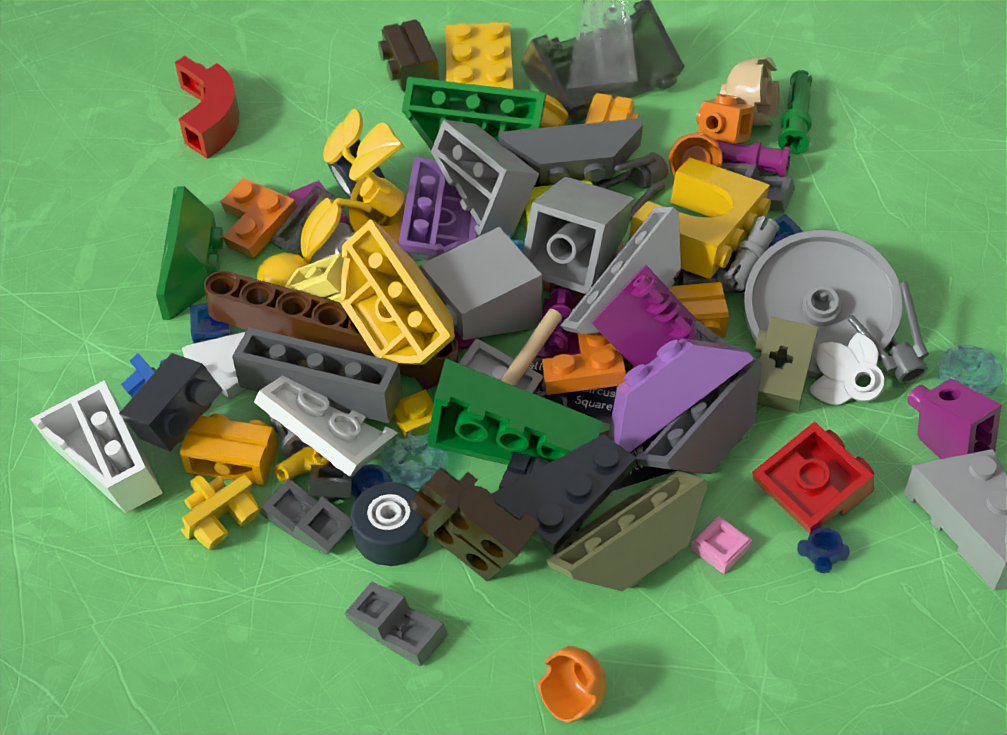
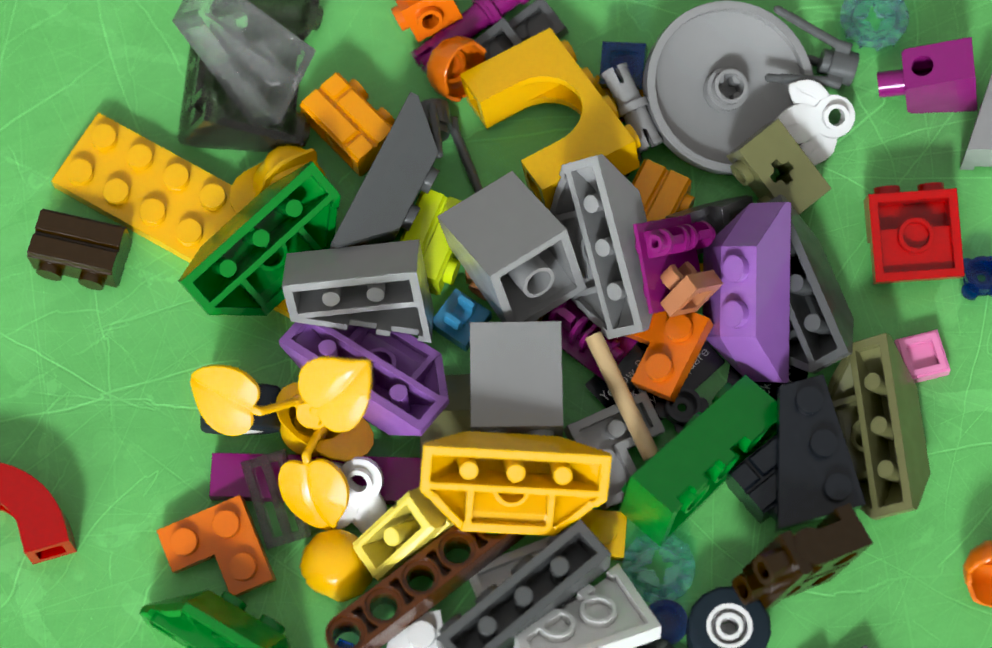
camera: 55 degrees left, 20 degrees up
(630, 338) = (688, 288): none -> nougat tile

